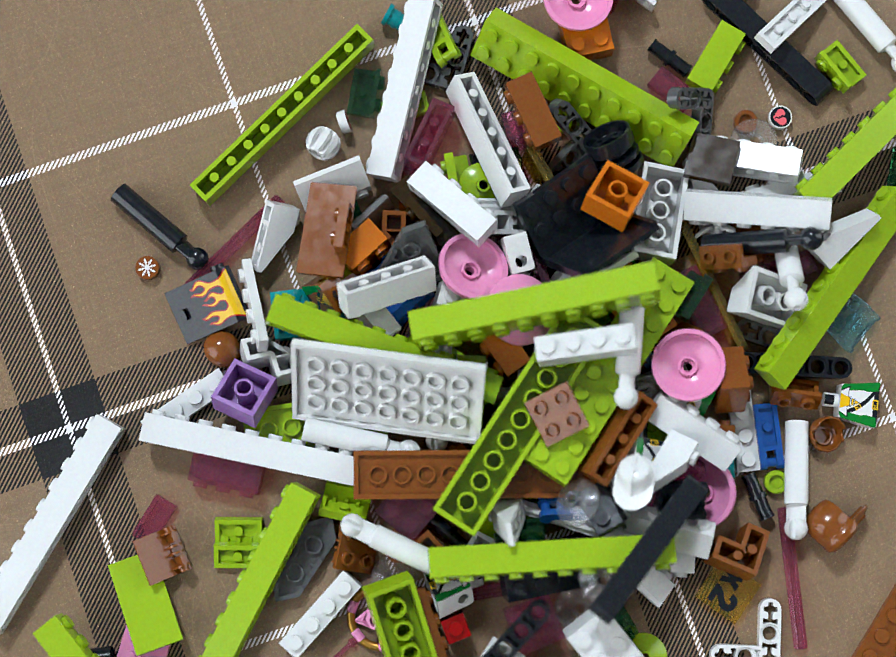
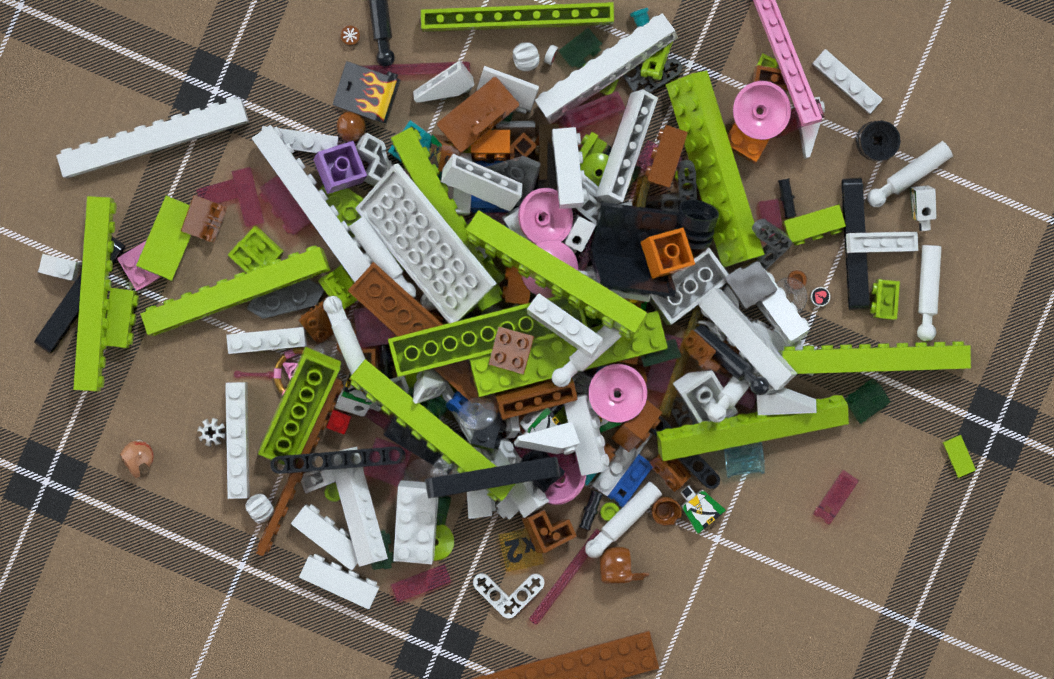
camera: 40 degrees right, 5 degrees up
(185, 497) = (248, 197): none -> clear pink tile
(254, 313) = (389, 124): white plate -> none
(634, 482) = (520, 431): white piece -> none

